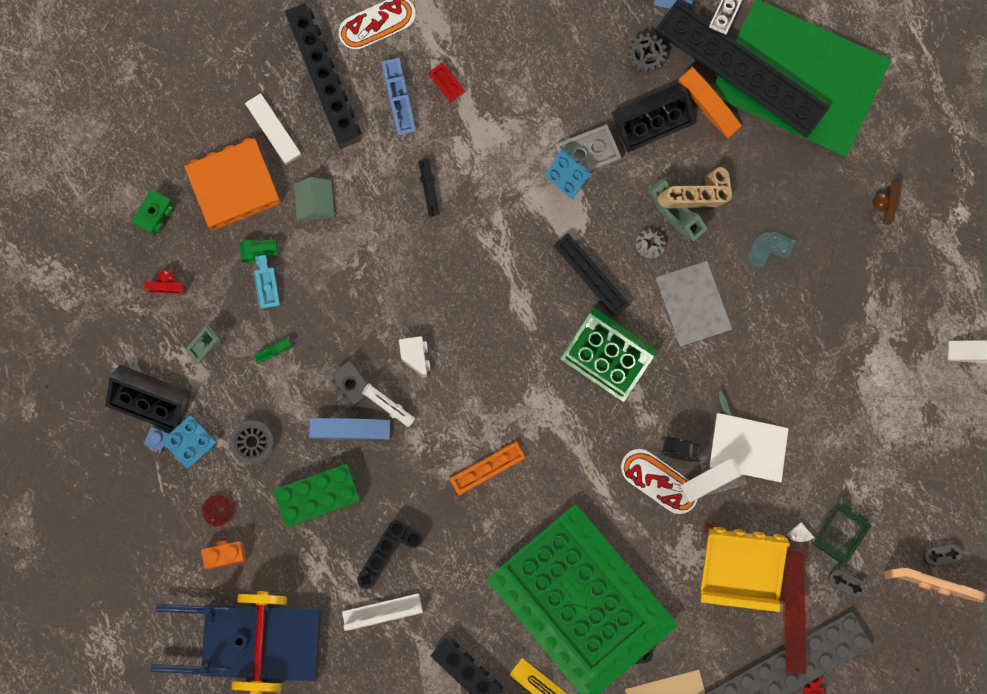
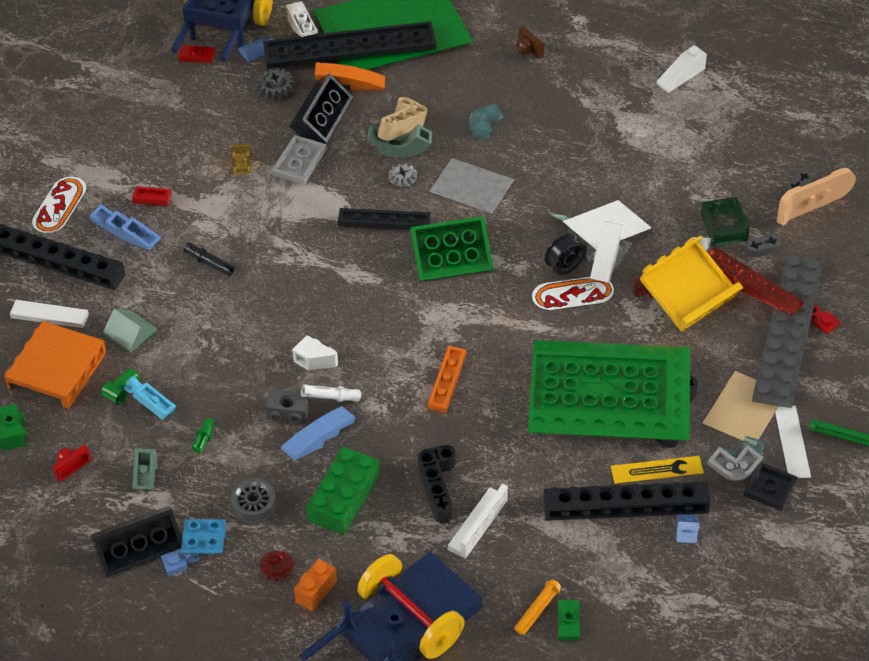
camera: 45 degrees left, 30 degrees down
(548, 106) = (241, 159): none -> clear yellow slope
(568, 174) = (300, 177): dark azure hinge -> none

